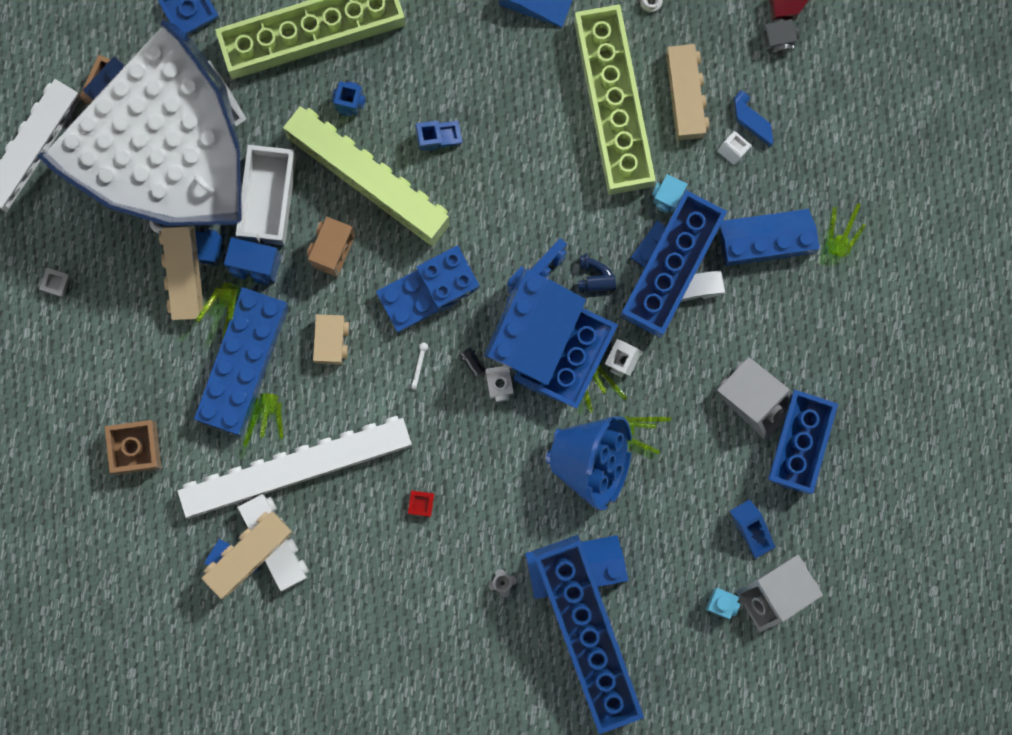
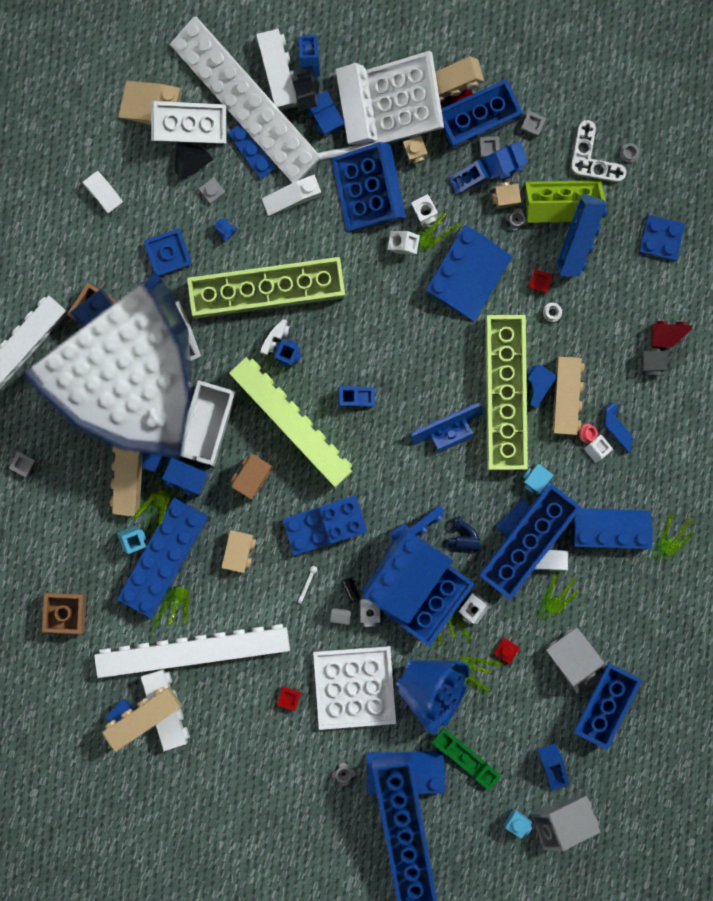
camera: 10 degrees right, 5 degrees up
(200, 346) = (132, 539): none -> medium azure brick
(332, 77) = (279, 331): none -> white slope
(465, 395) = (340, 616): none -> white slope
(497, 476) = (354, 687): none -> white plate
(555, 154) = (449, 430): none -> blue bracket
(646, 537) = (466, 758): none -> green slope
(651, 81) = (540, 382): none -> blue arch
(670, 401) = (506, 650): none -> red plate
(716, 336) = (555, 604): none -> clear neon green plant
(719, 131) = (588, 433): none -> coral plate

